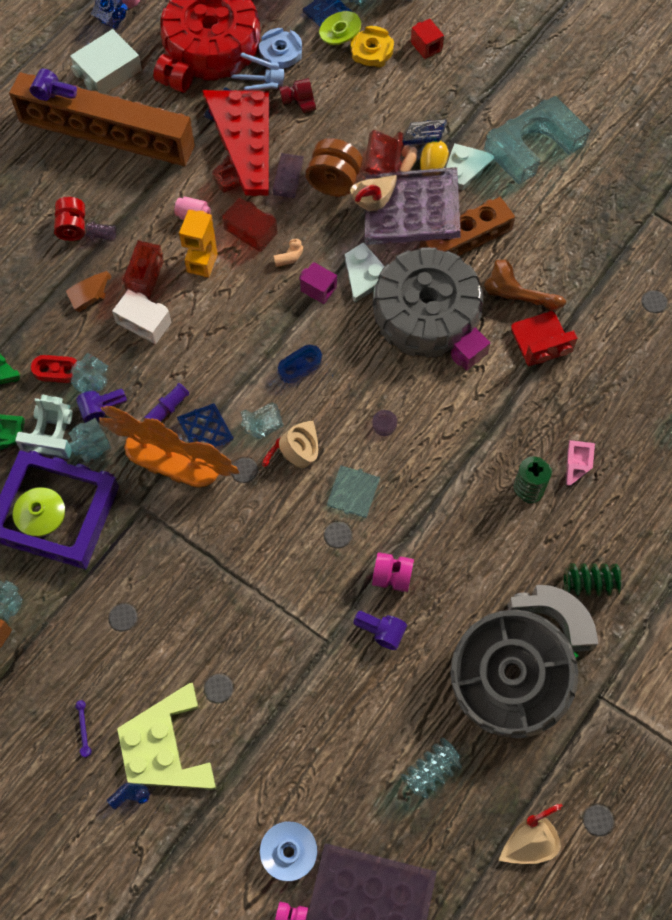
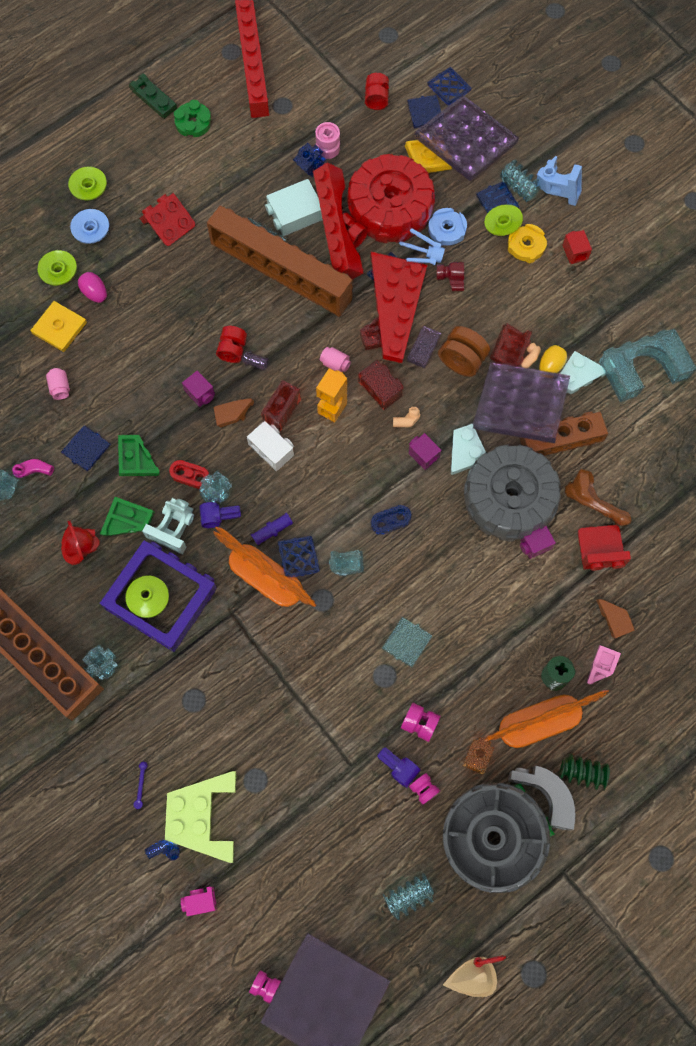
camera: 15 degrees right, 5 degrees up
(43, 274) = (198, 389): none -> magenta brick
(47, 85) = (240, 225): dark purple axle -> none
(88, 440) = (201, 545): clear light blue brick -> none
(141, 36) = (330, 188): none -> red arch
(187, 843) = (199, 902): none -> dark pink brick
(283, 836) = (264, 935): light blue dish -> none
(297, 445) = (370, 591): tan piece -> none
(373, 193) = (492, 382): tan piece -> none
(384, 422) = (448, 589): tile -> none
(412, 641) = (421, 784): none -> dark pink wheel
(425, 132) = (551, 335): piece -> none
(467, 601) = (475, 763): none -> clear orange brick
(532, 534) = (542, 720): none -> orange plant
(579, 407) = (616, 617): none -> dark orange slope

